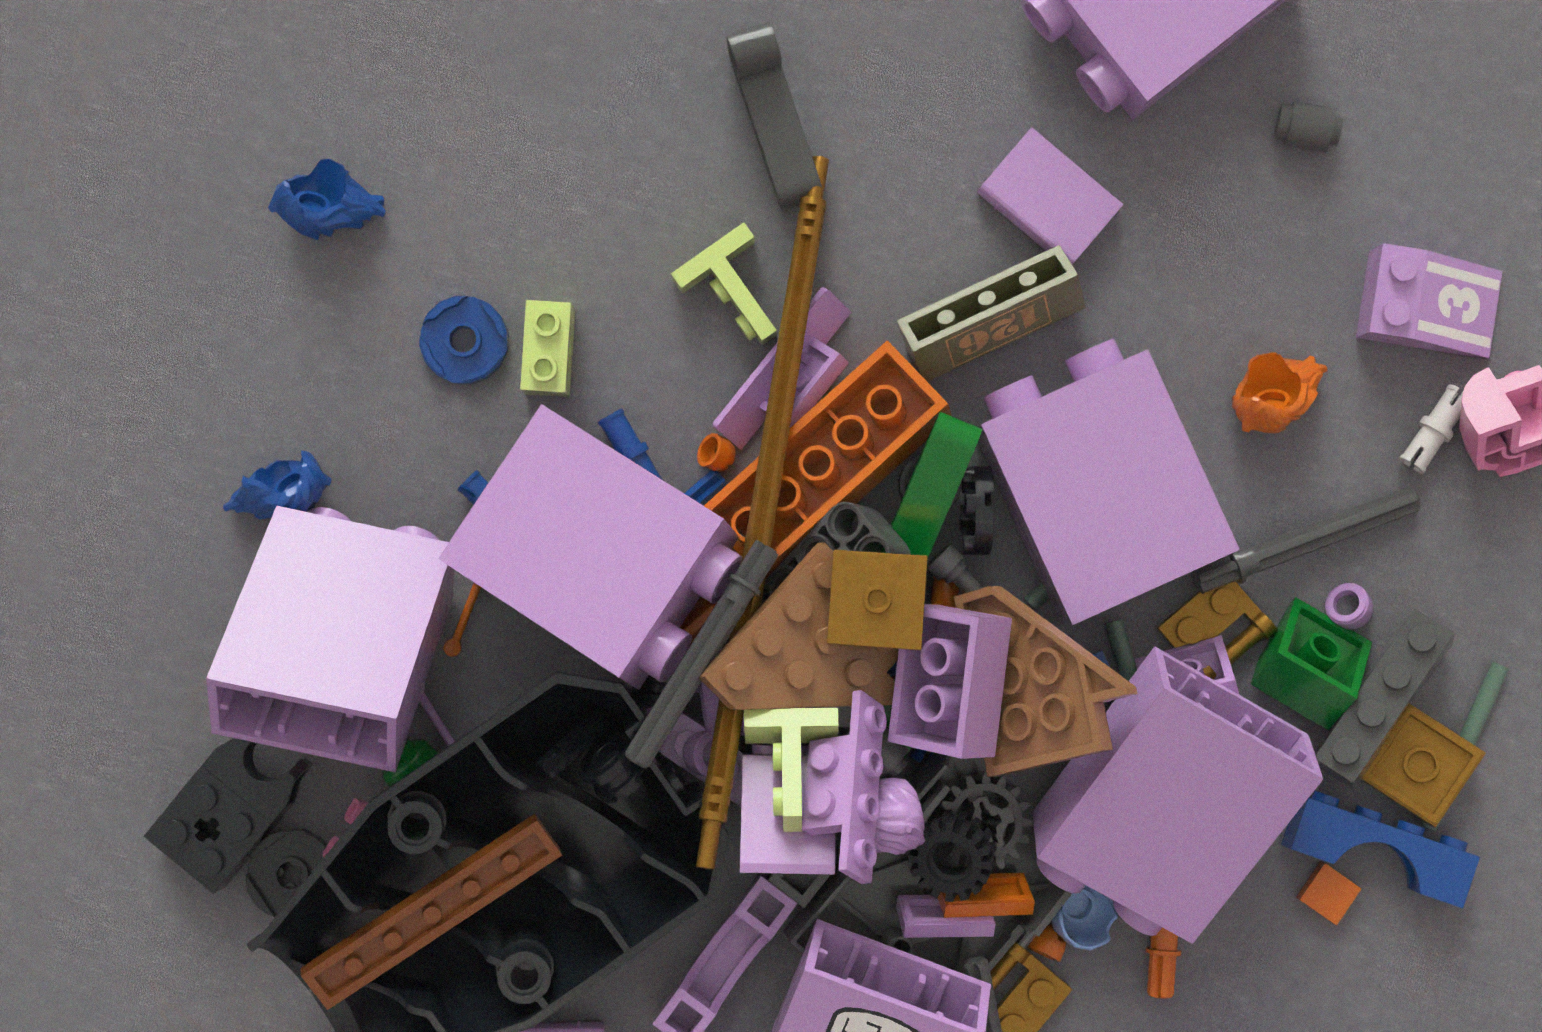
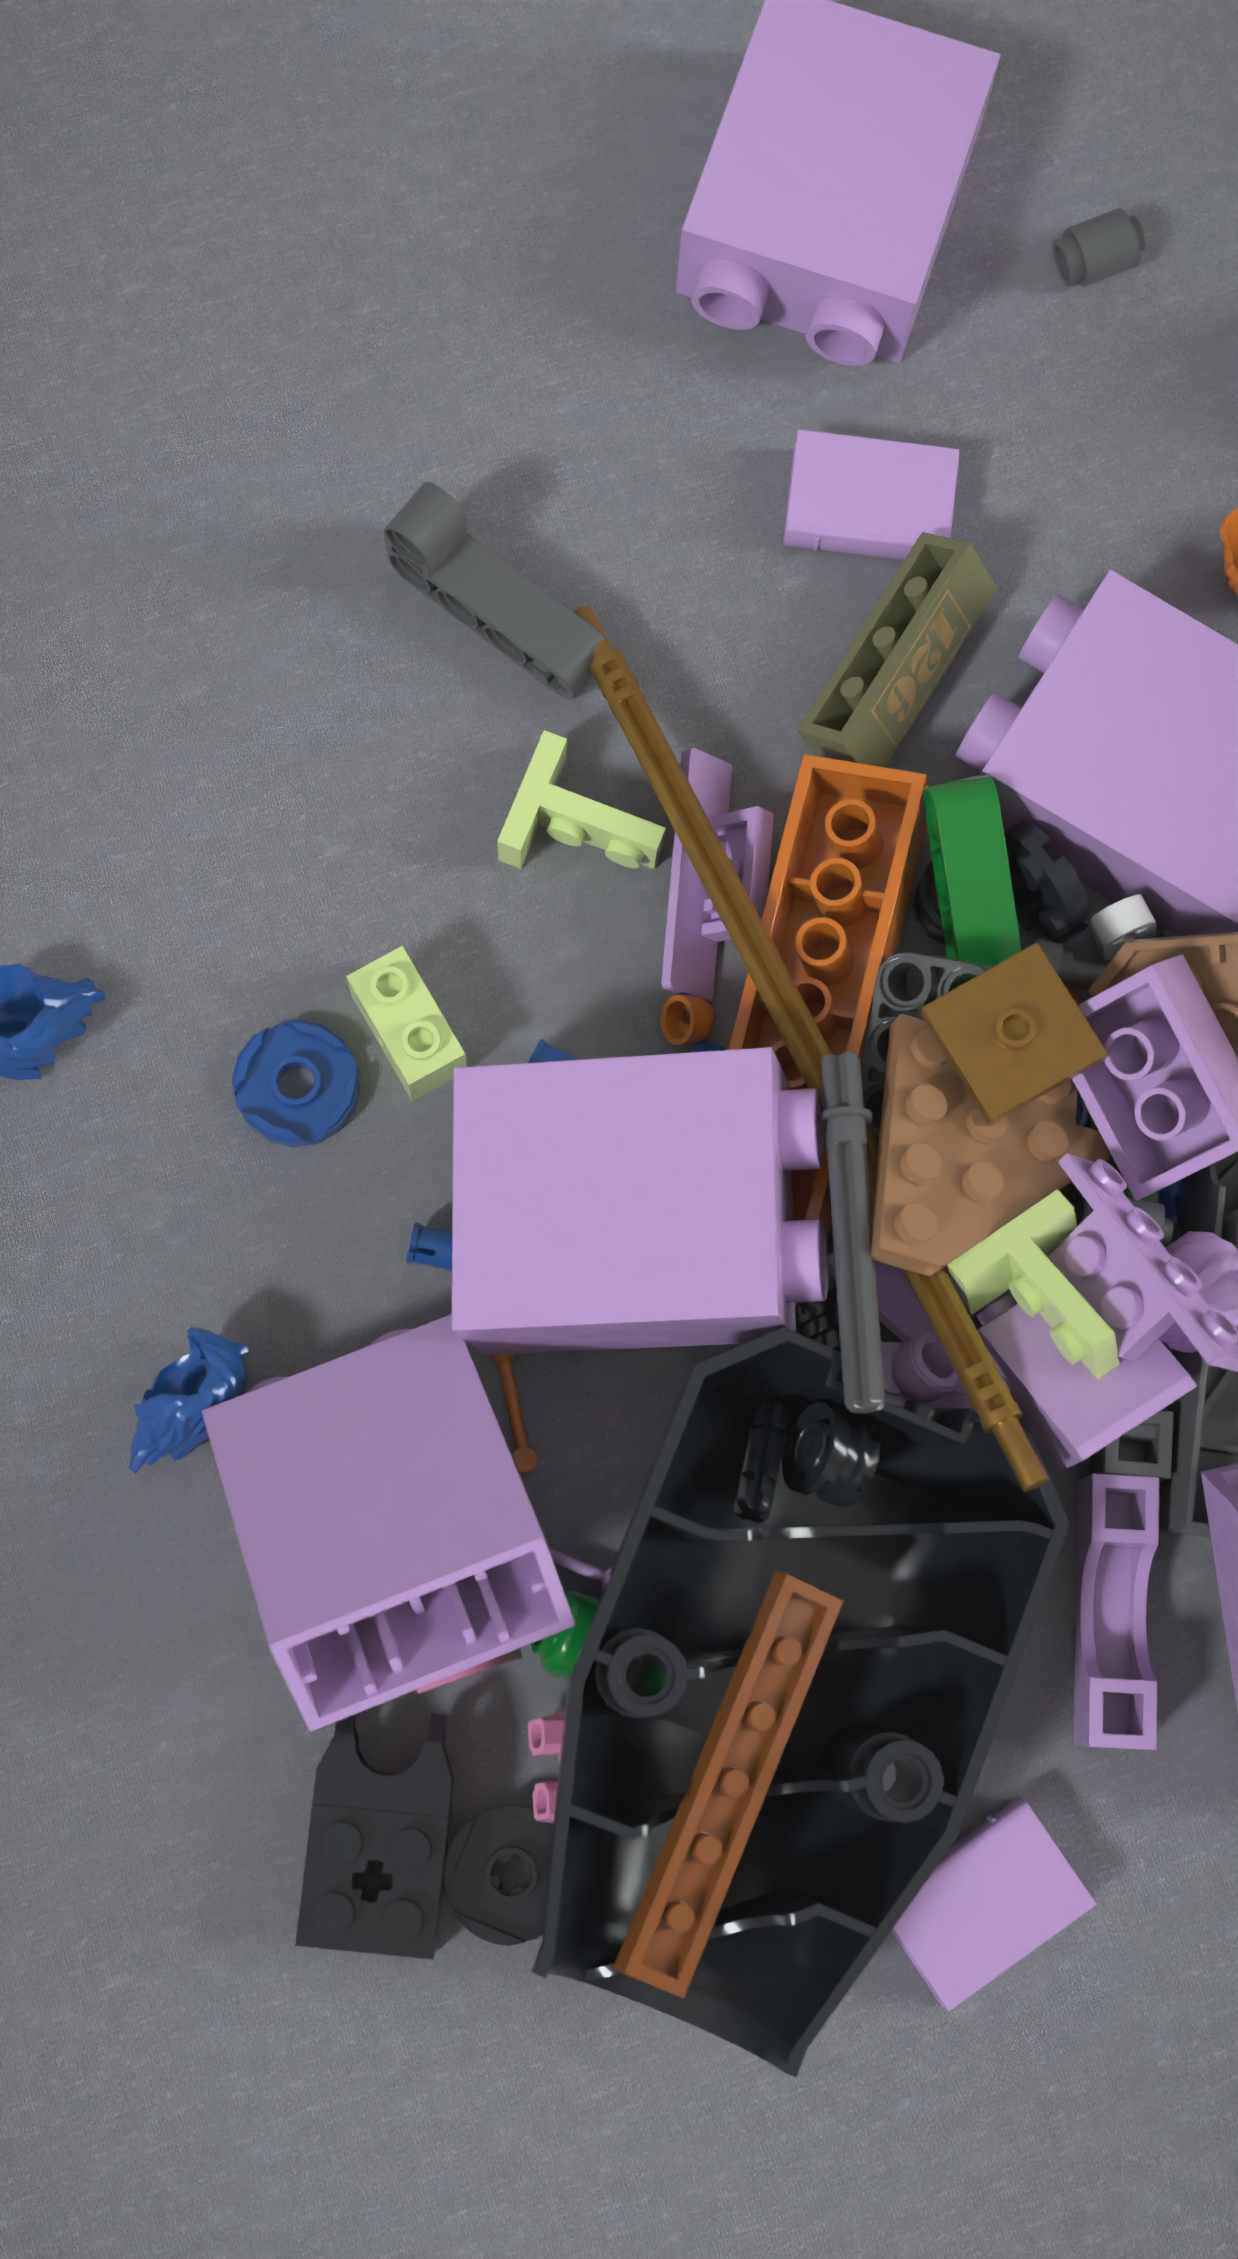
camera: 40 degrees left, 10 degrees down
(1009, 569) = (1122, 923): none -> white beam

